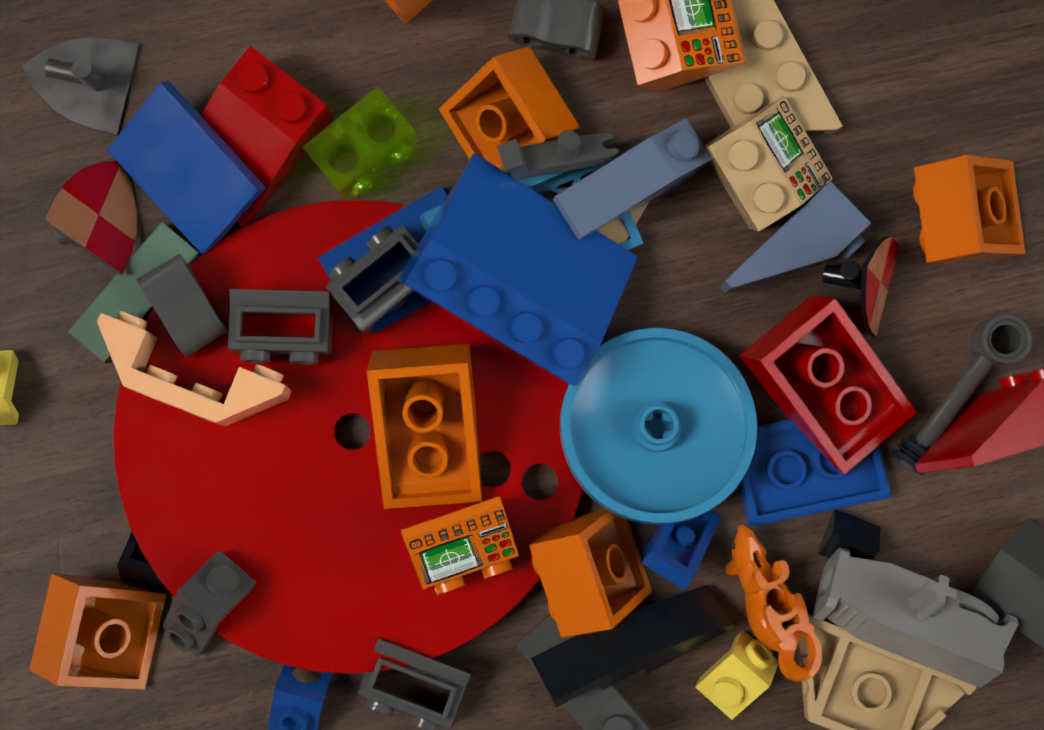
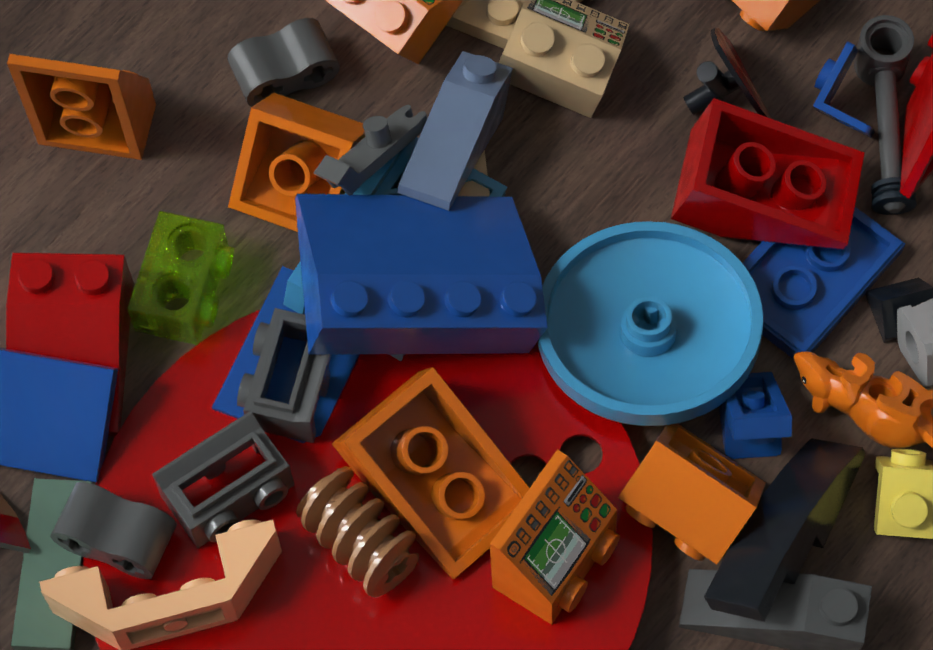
camera: 35 degrees left, 20 degrees down
(339, 431) = (356, 533): none -> medium nougat piece
(809, 238) = (649, 88): sand blue slope -> none
(922, 359) = (829, 82): none -> blue bracket

